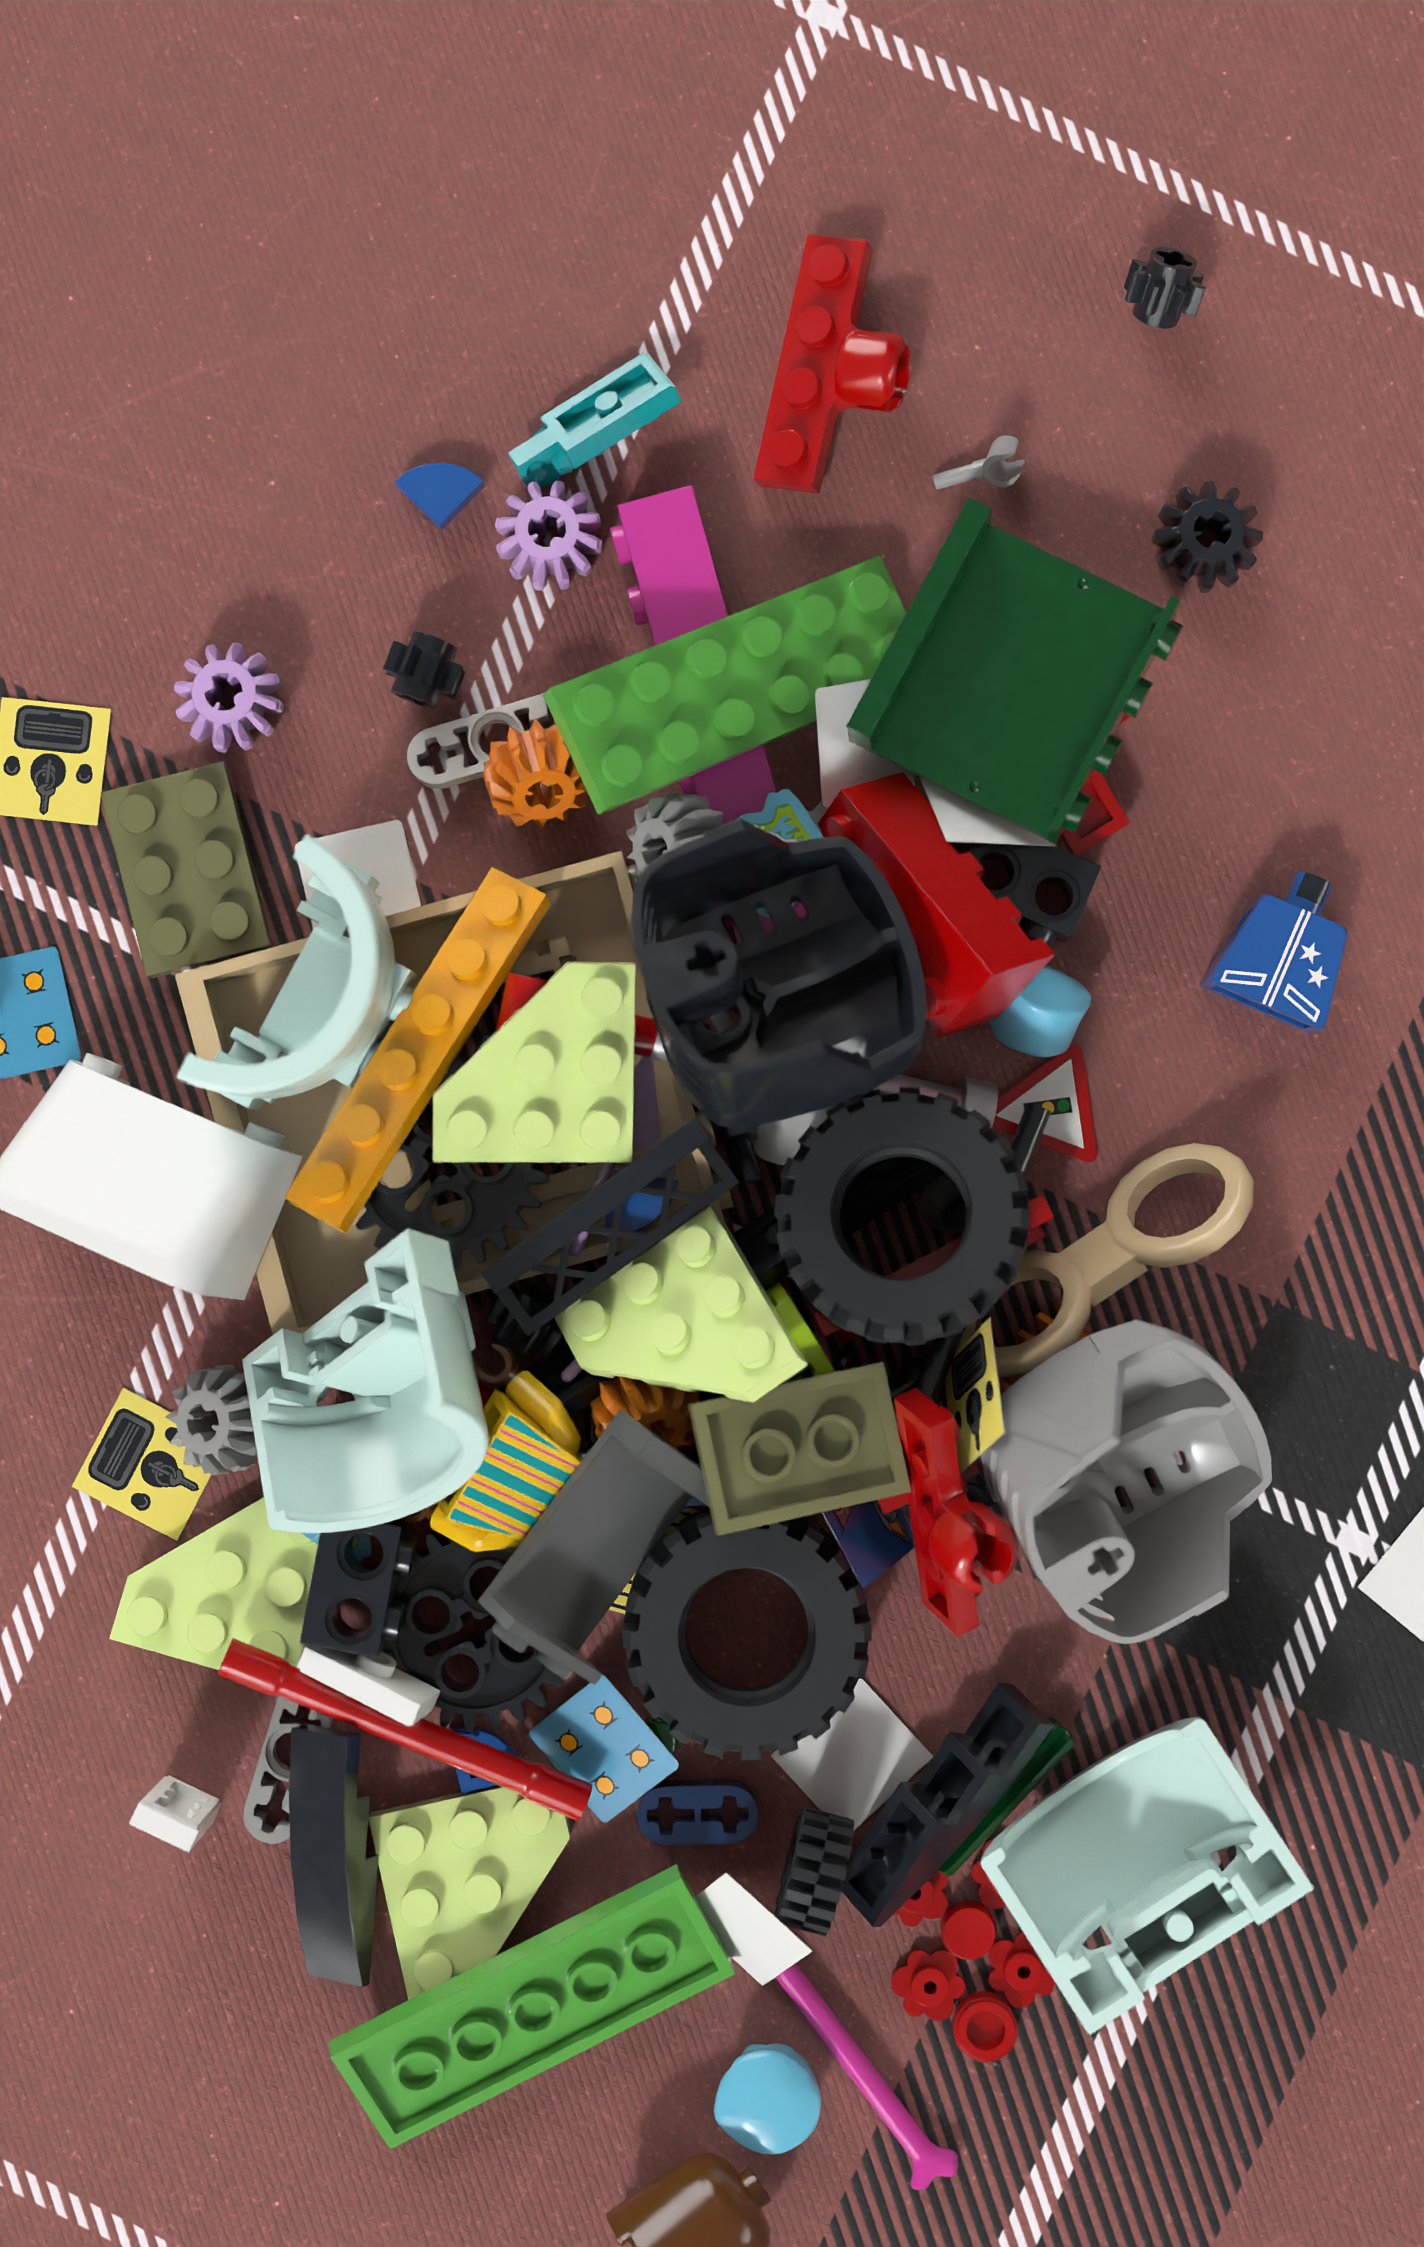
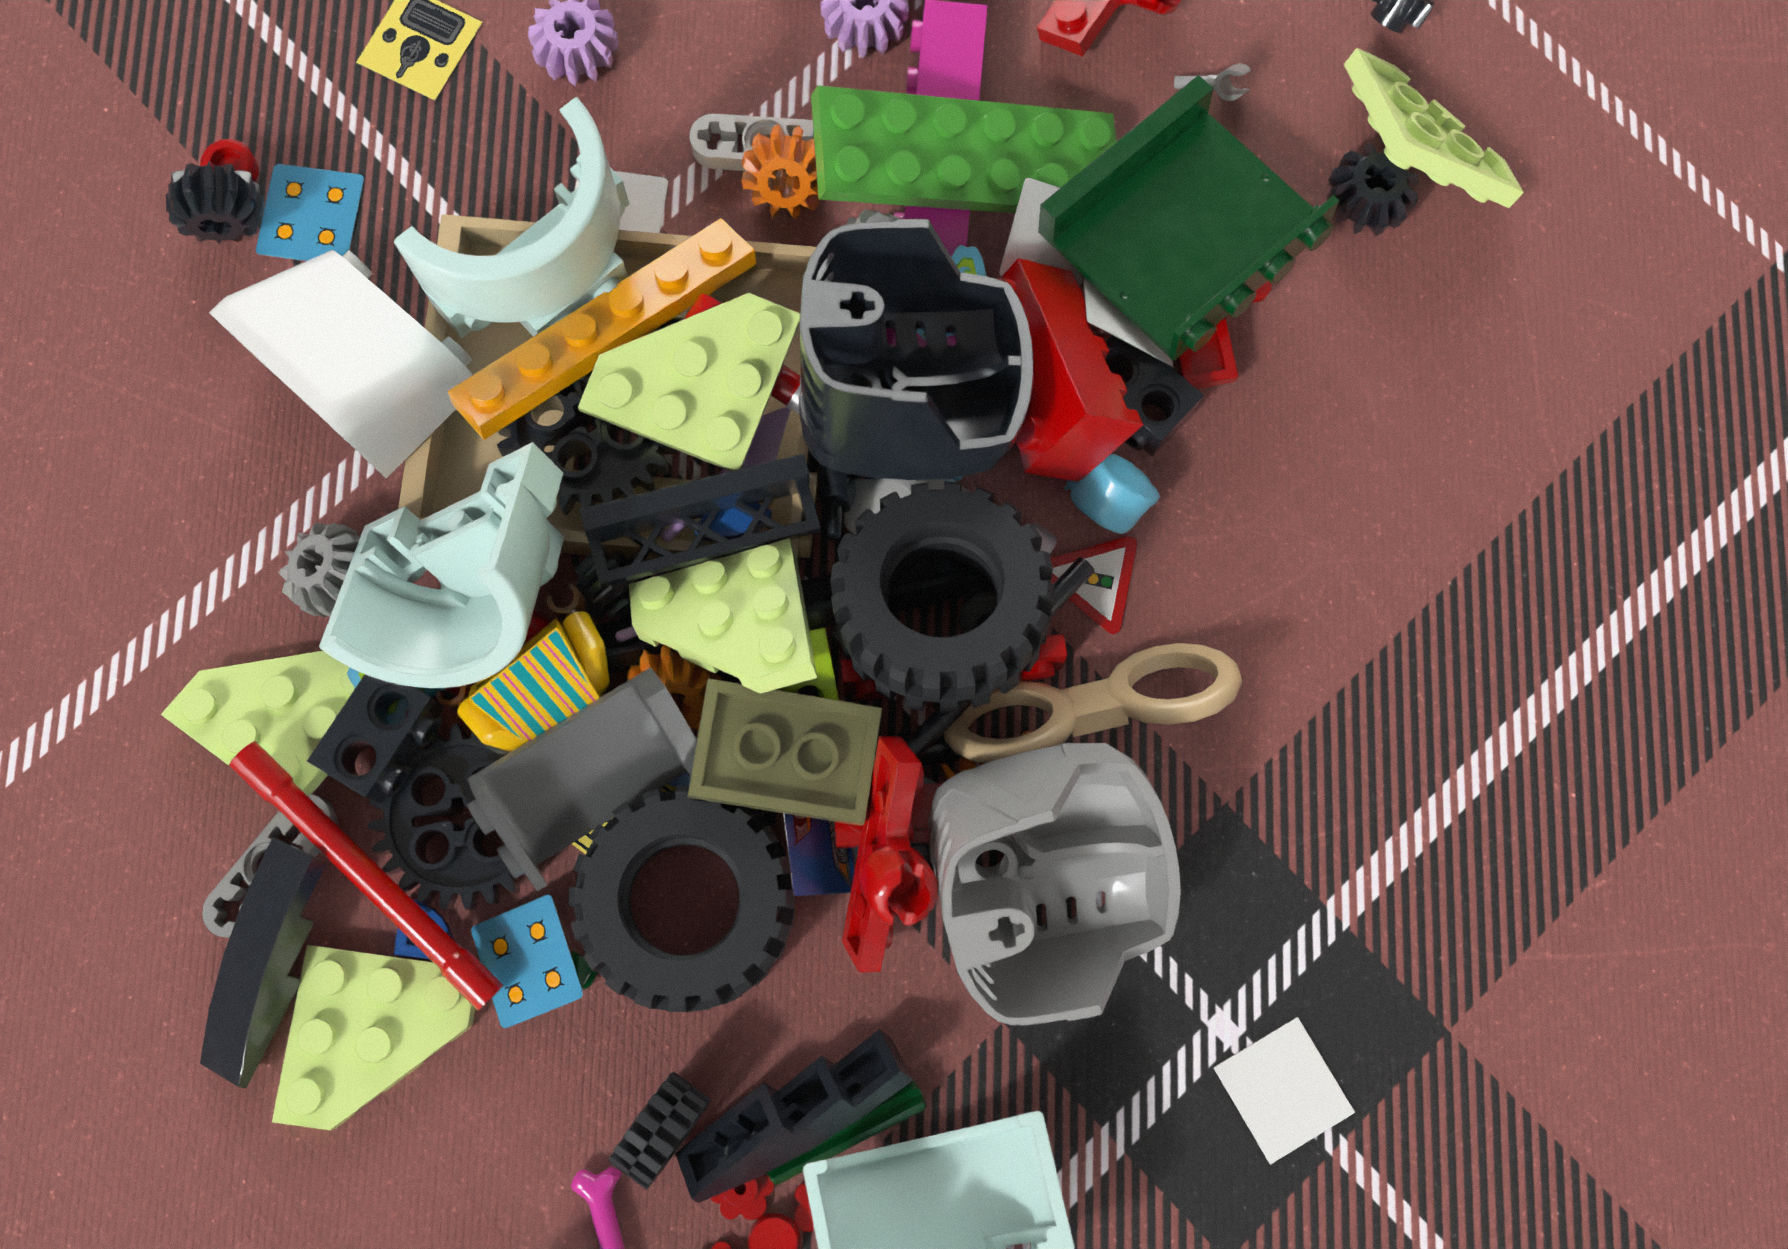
camera: 10 degrees right, 10 degrees down
(139, 1469) = (248, 594): sticker -> none
(176, 1813) = (146, 873): white plate -> none
(186, 870) = (487, 148): olive plate -> none
(371, 1682) = (353, 819): white plate -> none
(424, 670) = (730, 69): black gear -> none
(531, 2007) = (372, 1160): bright green plate -> none
(698, 1827) = (579, 1060): dark blue beam -> none
(750, 1931) = (581, 1160): white sticker -> none
(857, 1759) = (733, 1049): white sticker -> none
(975, 1396) = (946, 765): sticker -> none
(1243, 450) = (1427, 133): none -> yellowish green plate
(1283, 956) = (1324, 524): blue torso -> none

